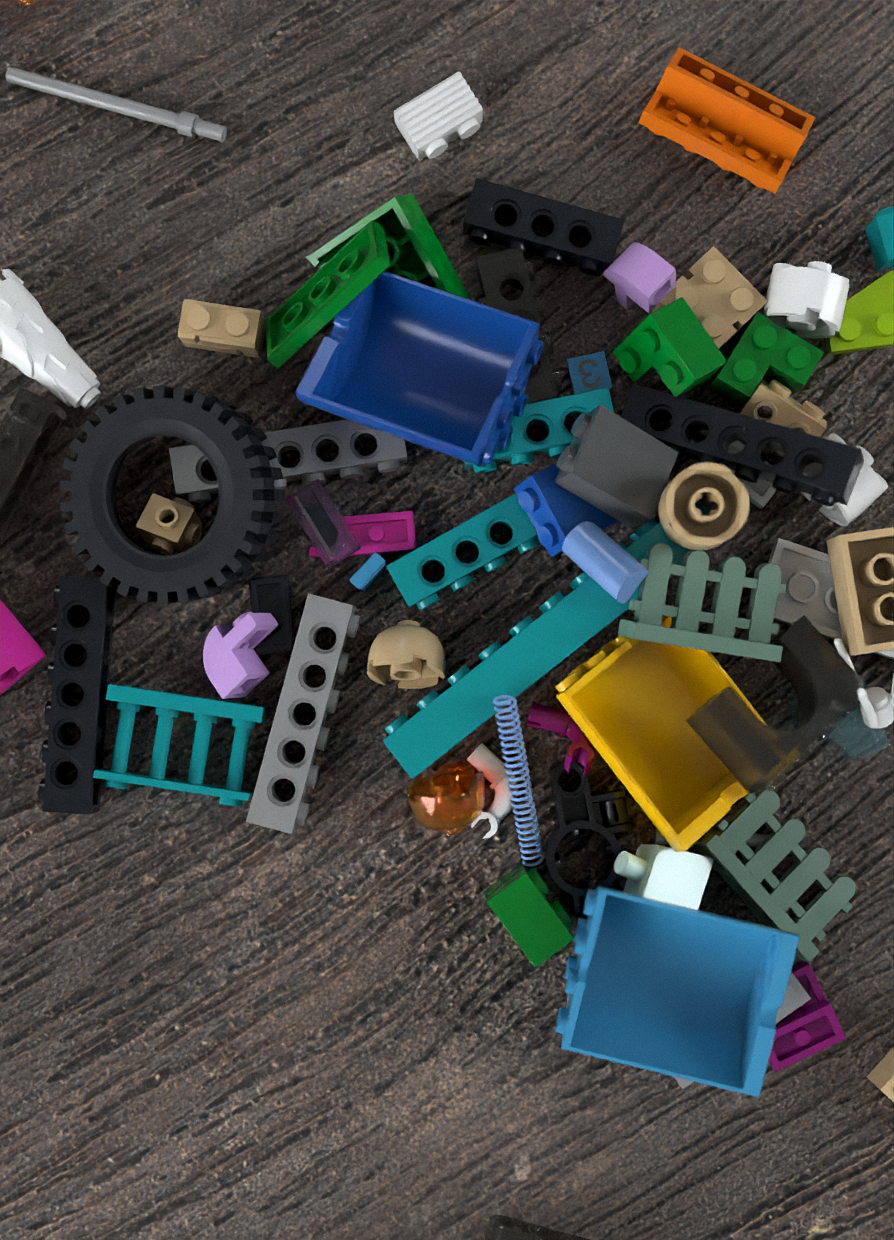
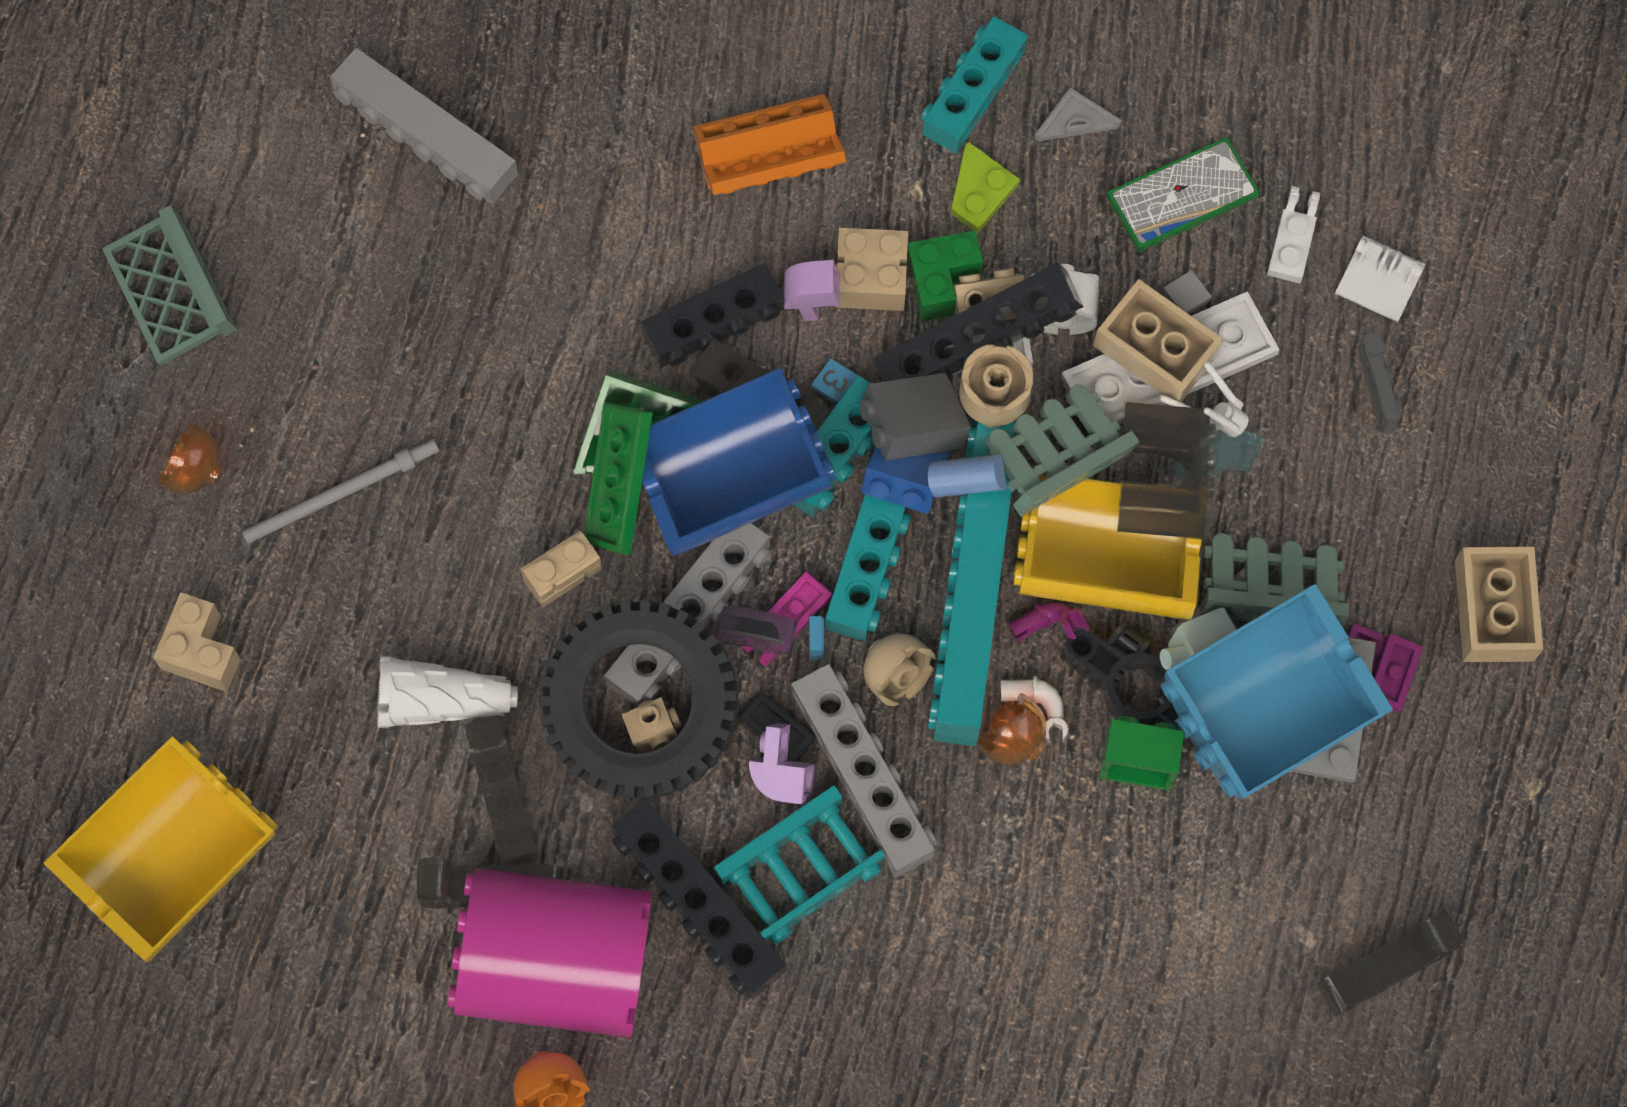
camera: 50 degrees left, 15 degrees down
(439, 117) = (574, 307): white brick -> none
(532, 810) = (1089, 710): light blue piece -> none
(672, 345) = (875, 309): green brick -> none
(807, 299) = (931, 208): white brick -> none

